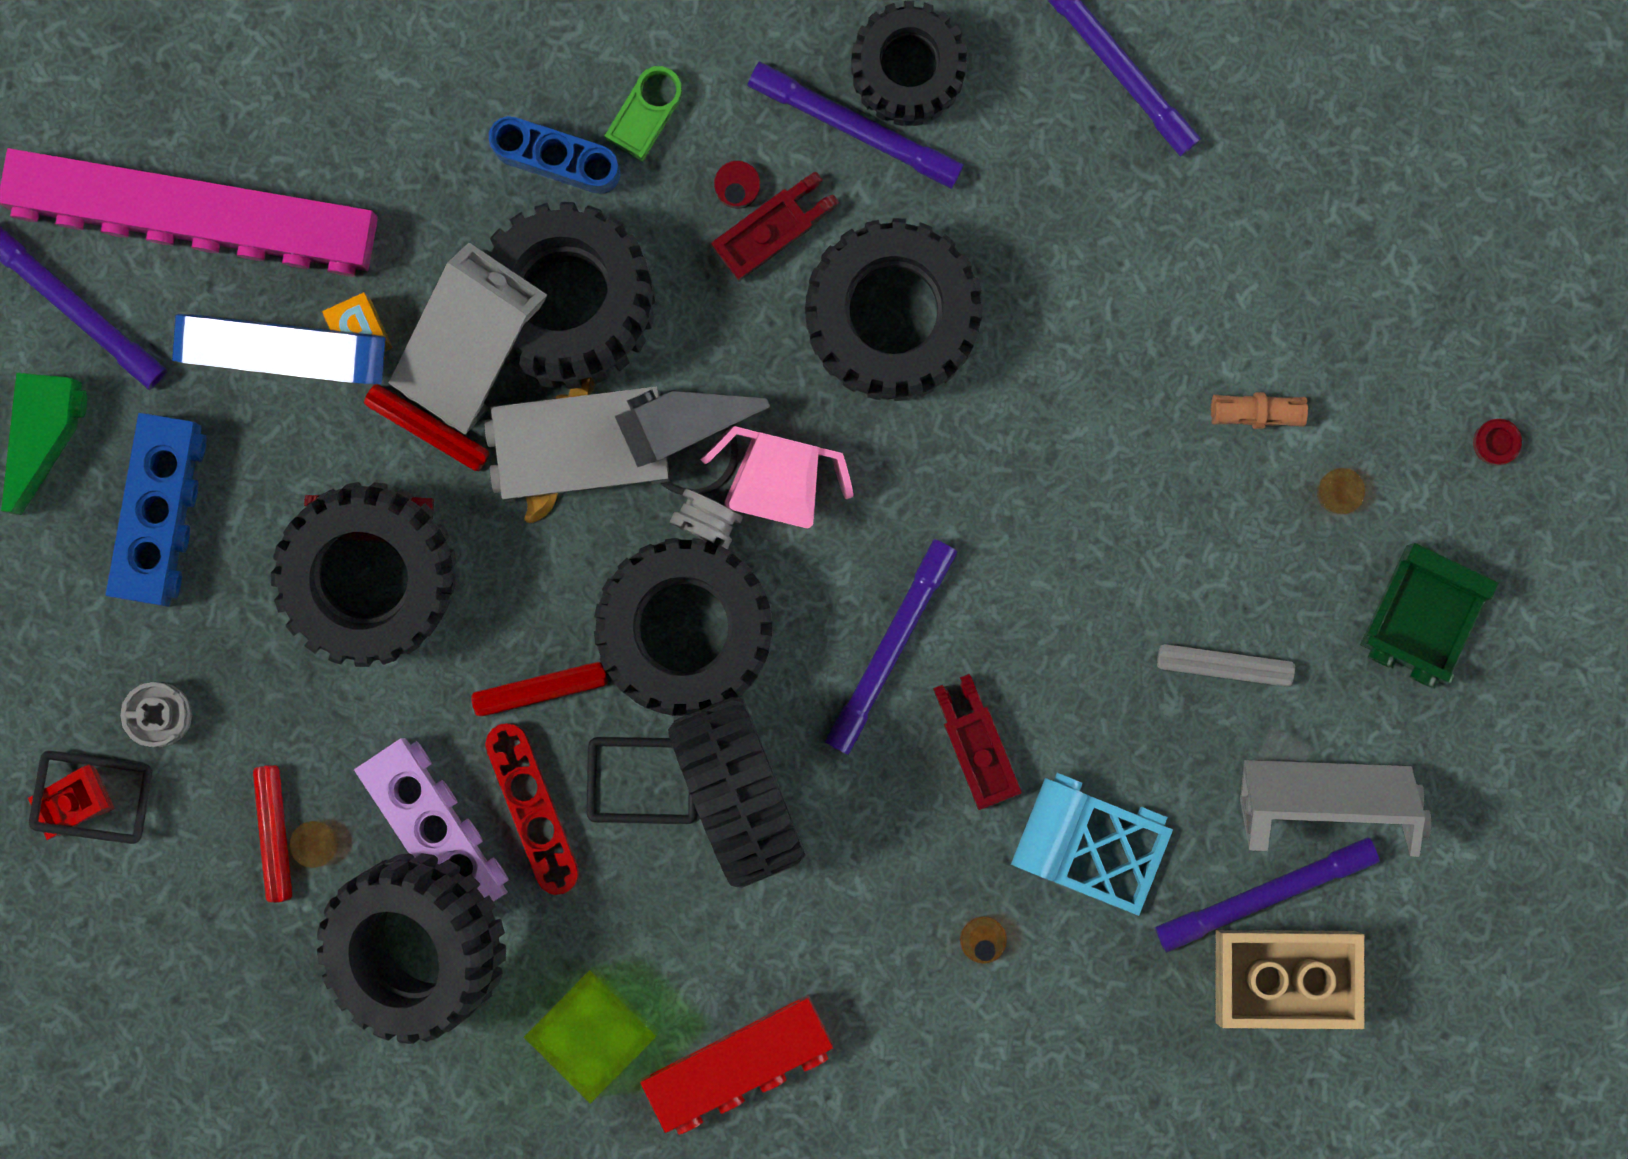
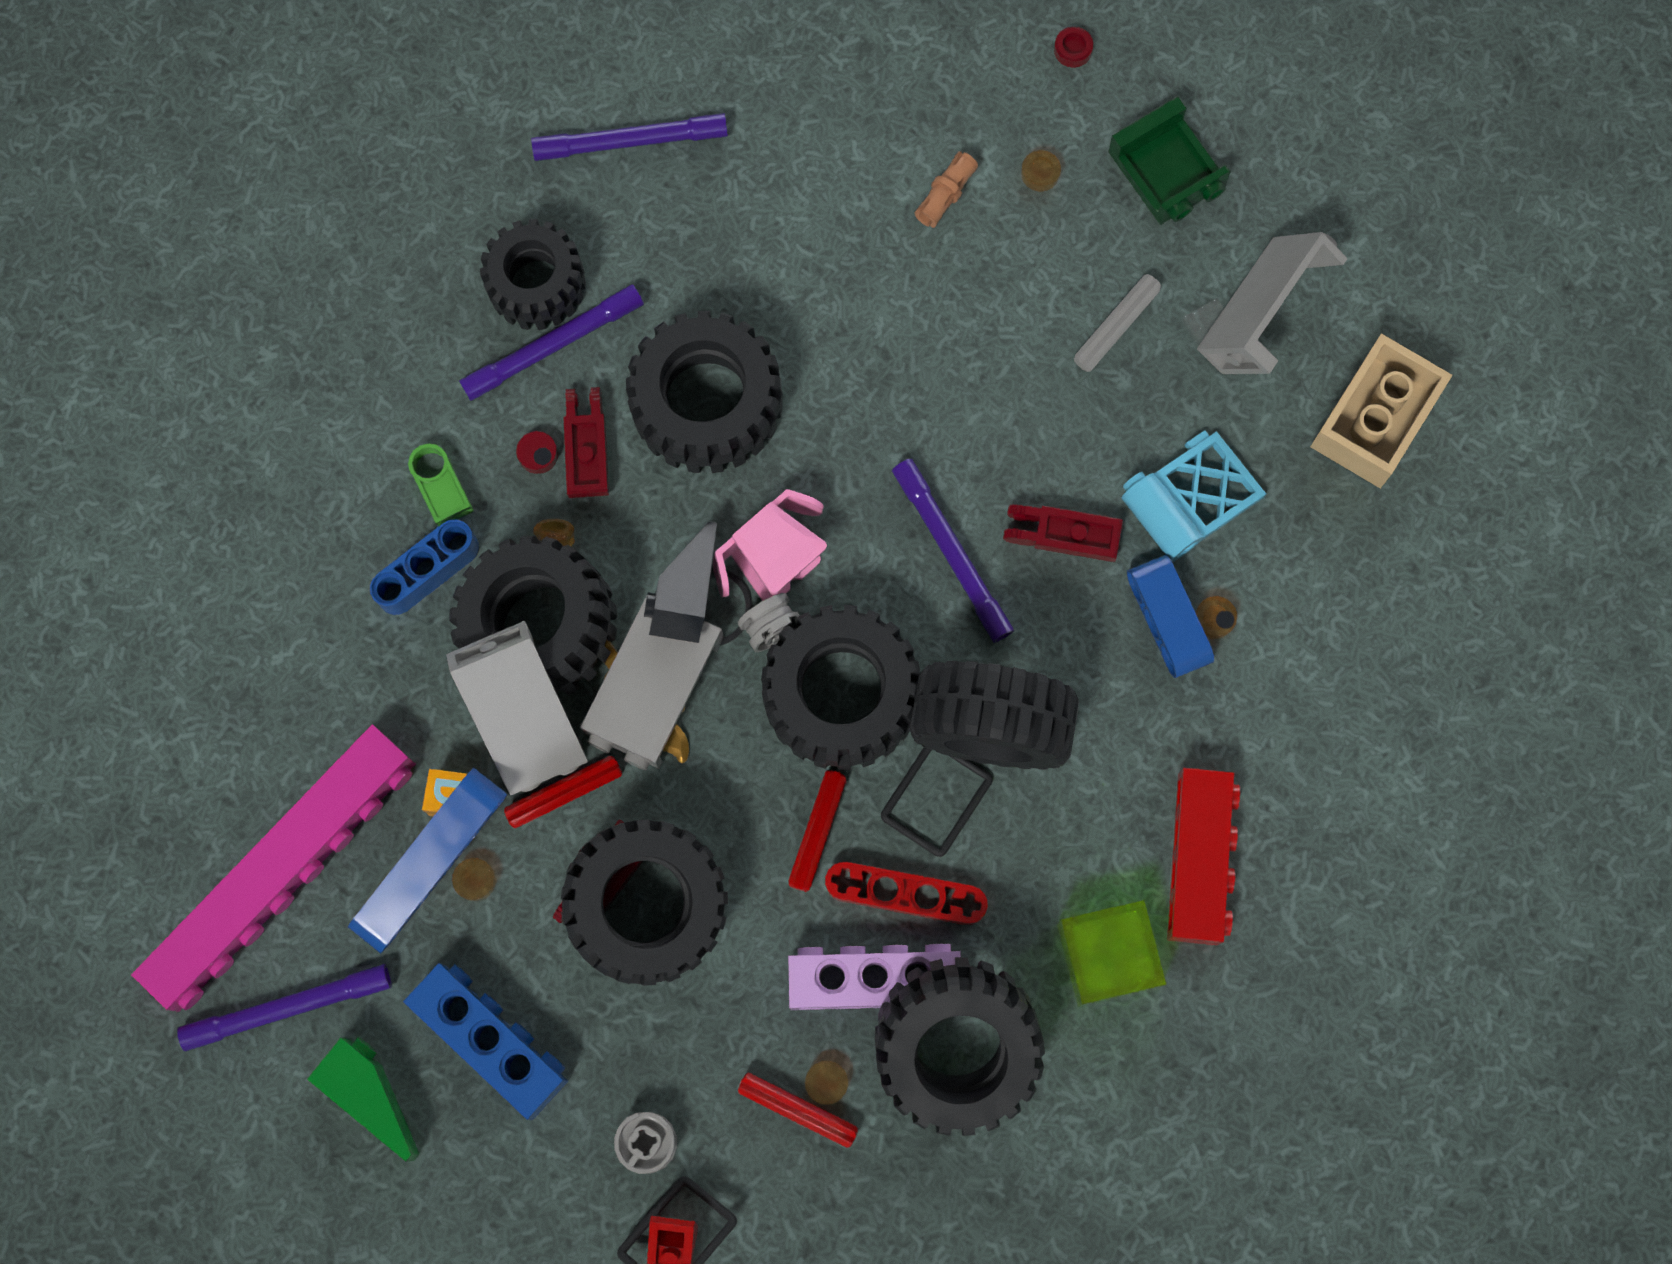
camera: 55 degrees left, 10 degrees down
(294, 399) = (474, 879): none -> clear orange tile
(664, 256) = (556, 529): none -> clear orange tile
(954, 896) = (1170, 616): none -> blue beam
(1336, 865) = (1298, 456): dark purple piece -> none

